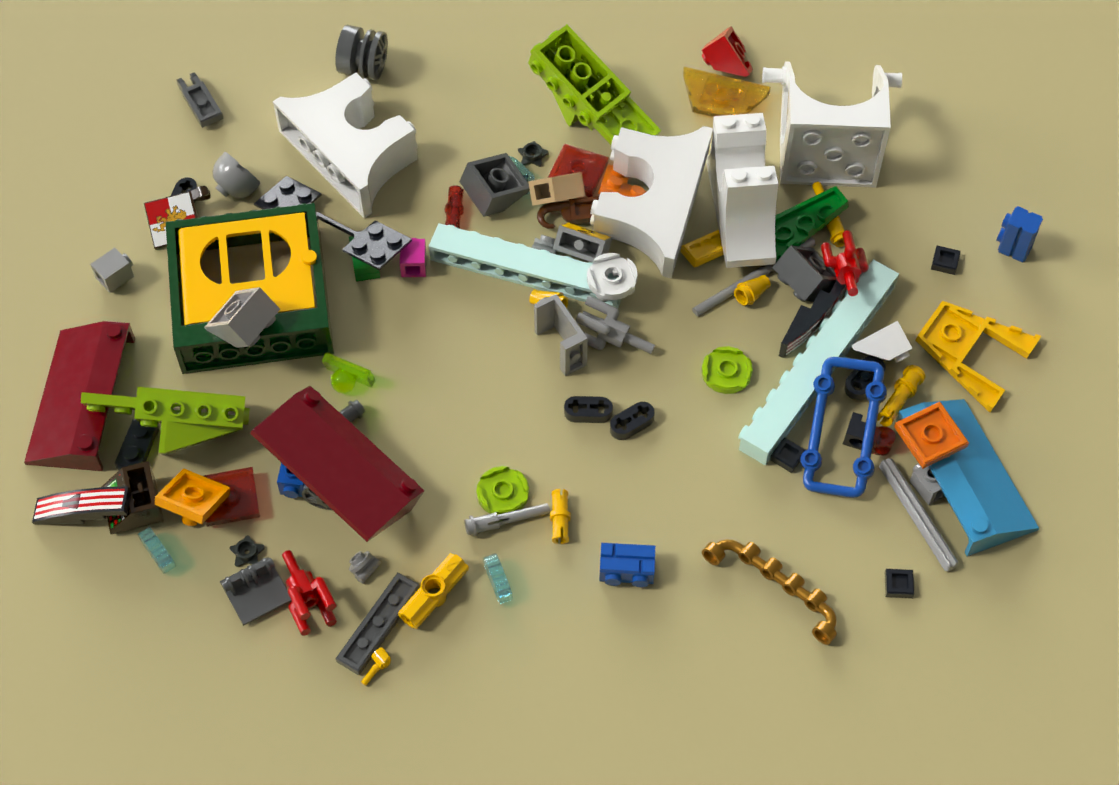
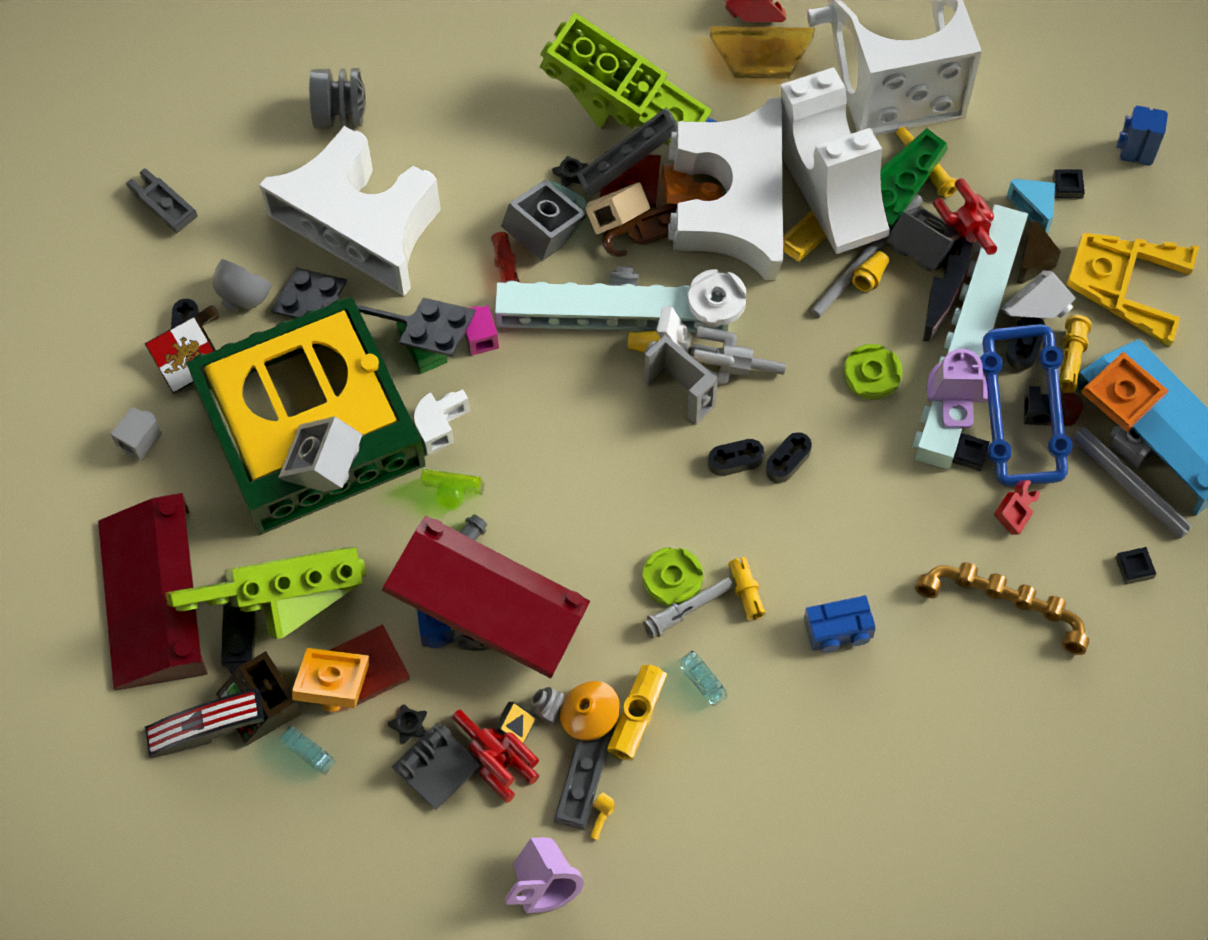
camera: 15 degrees left, 5 degrees up
(308, 702) = (543, 877): none -> lavender container
(332, 572) = (515, 720): none -> tile
(350, 315) = (433, 418): none -> white brick
(395, 579) = (594, 720): none -> light orange dish
(569, 294) = (673, 328): none -> white plate
(578, 147) = (627, 152): none -> dark grey tile
(581, 242) = (666, 265): light grey brick -> none
(790, 394) = (958, 383): none -> lavender container
(808, 509) = (1015, 509): none -> red plate
(898, 308) = (1038, 255): none -> dark brown slope
(910, 265) = (1033, 198): none -> medium azure slope

